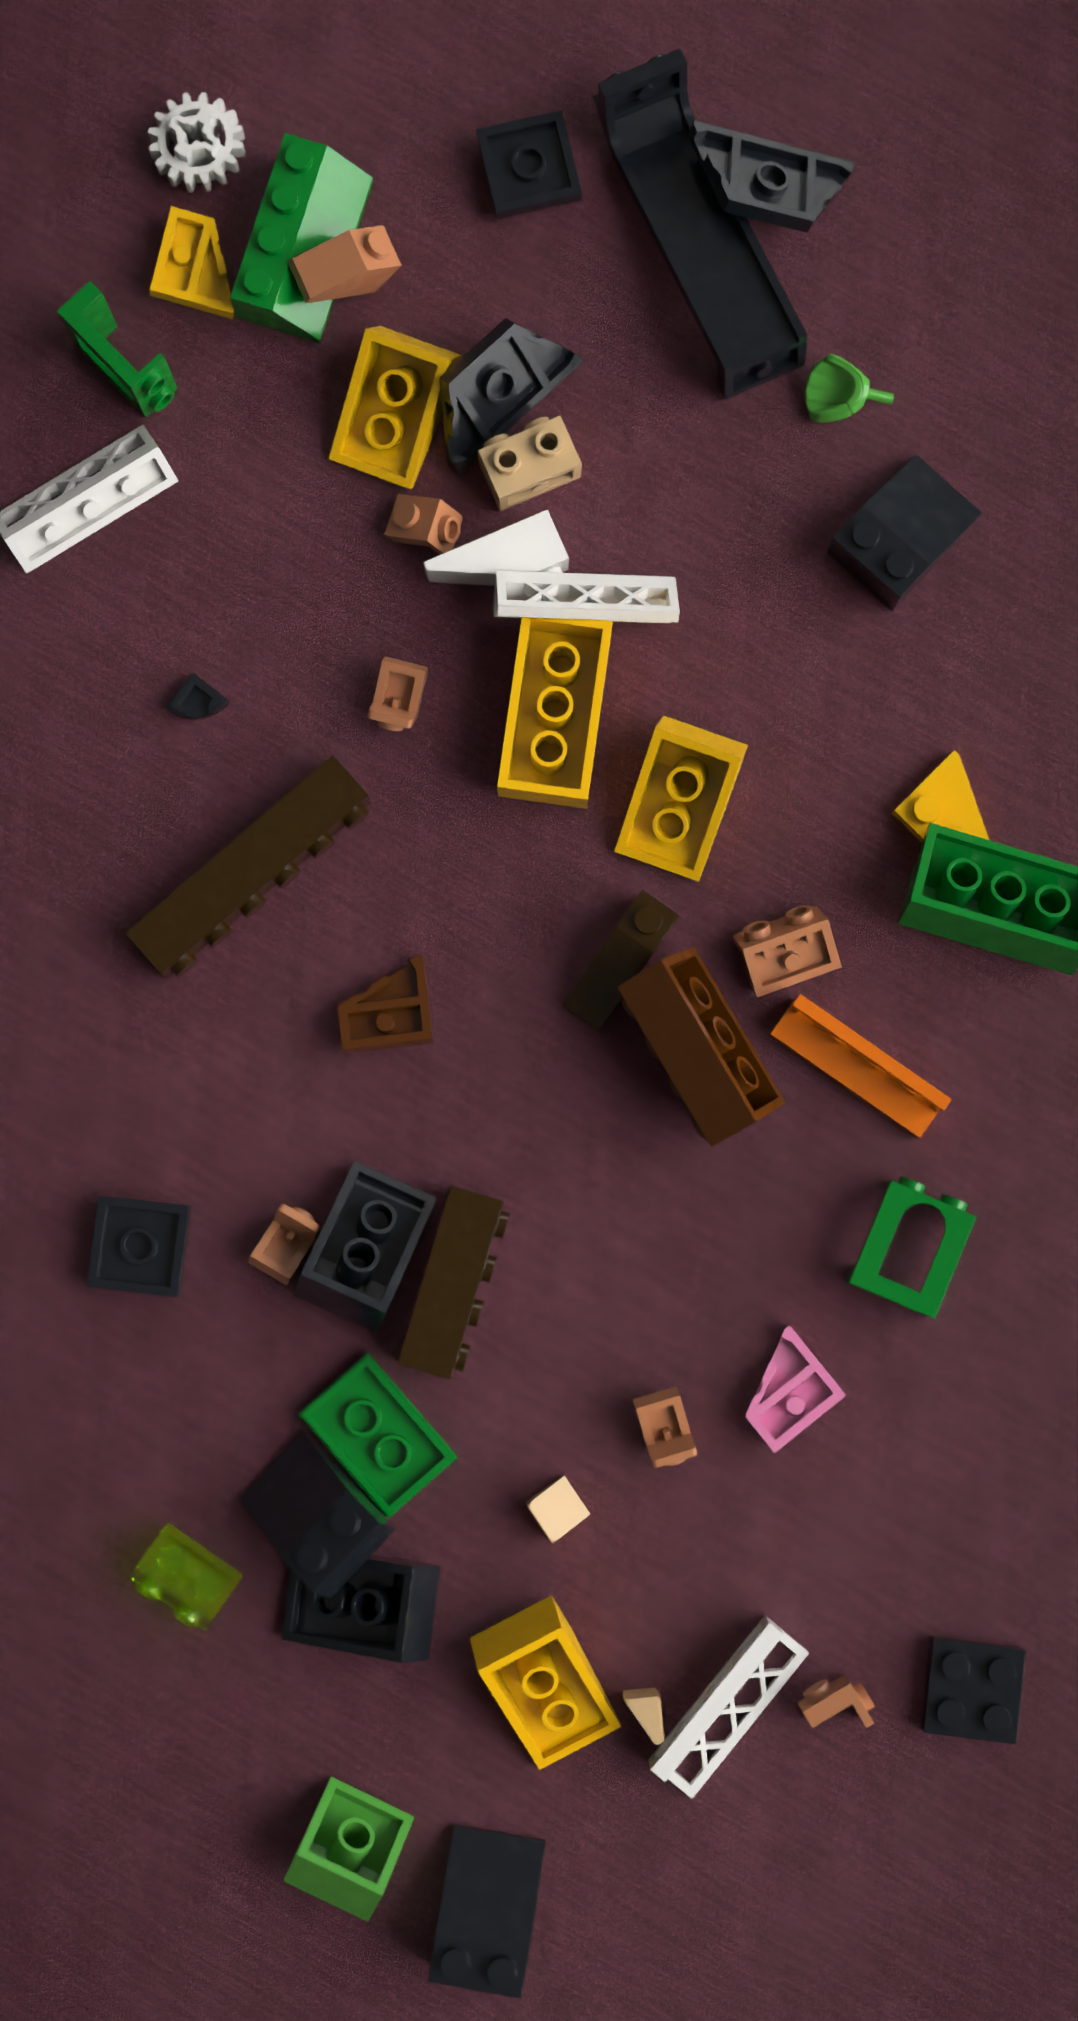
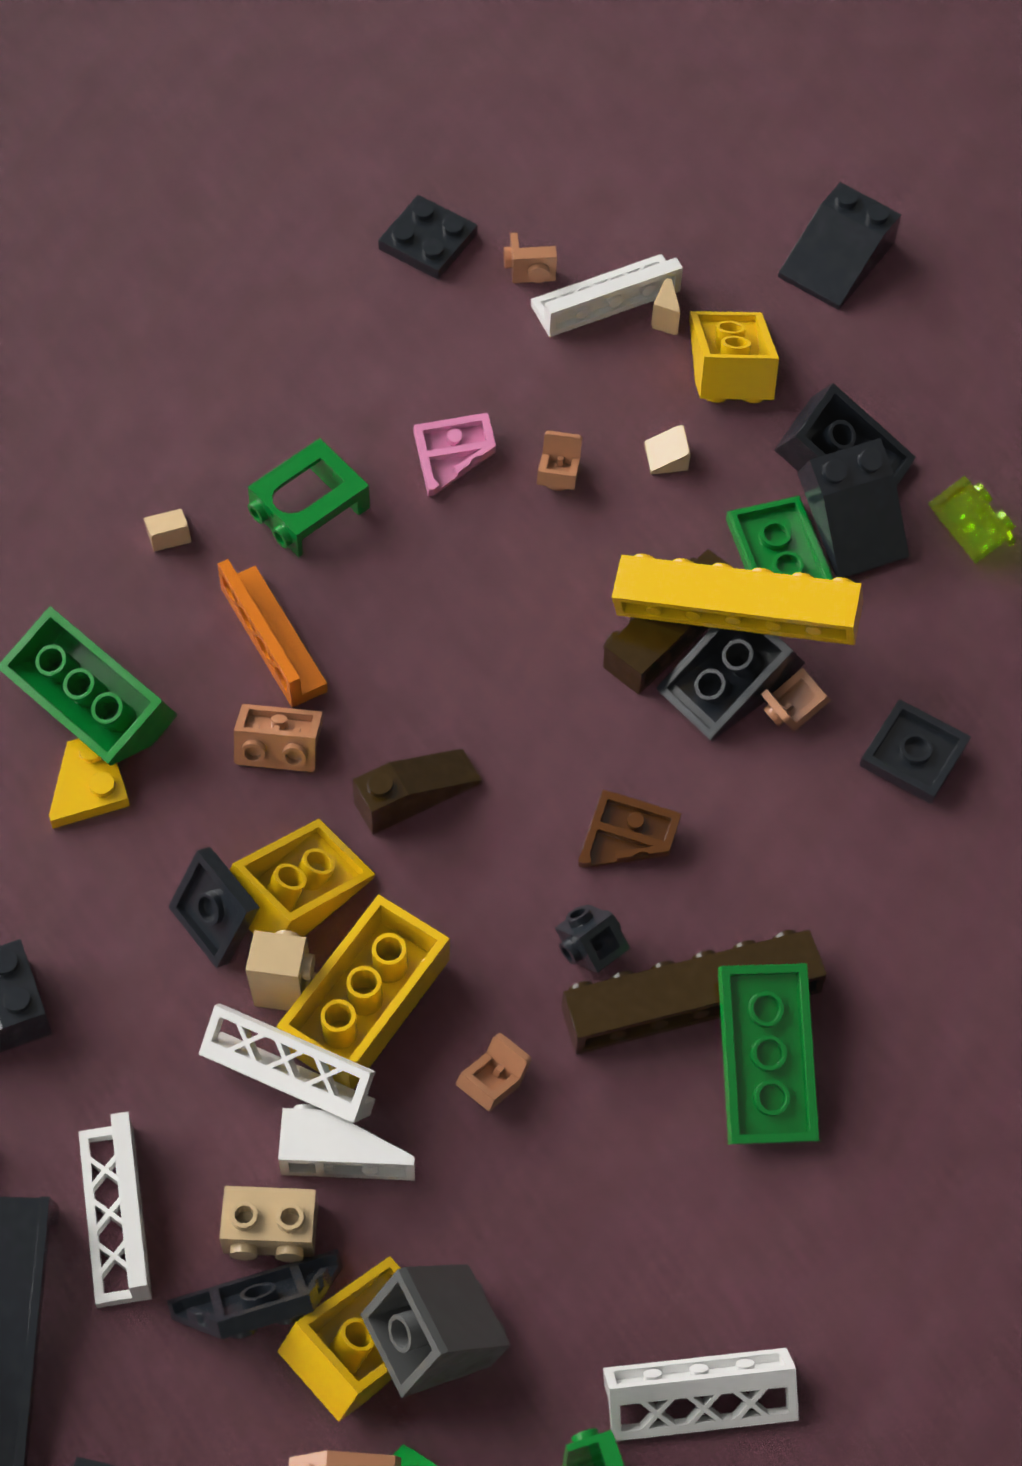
camera: 155 degrees left, 25 degrees down
(149, 826) = (768, 1054): none -> green plate
(196, 700) = (675, 1161): black tile -> none
(328, 424) = (433, 1326): none -> dark grey slope
(349, 1849) = (922, 316): bright green slope -> none
(368, 869) = (591, 938): none -> black brick
(379, 1301) = (738, 598): none -> yellow brick
(424, 523) = (394, 1215): nougat bracket -> none
(641, 687) = (279, 968): none -> tan brick
(663, 420) = (131, 1212): none -> white fence
(700, 1046) = (388, 680): reddish brown brick -> none
(741, 722) = (213, 907): none -> black plate
(1039, 1142) = (167, 530): none -> tan slope

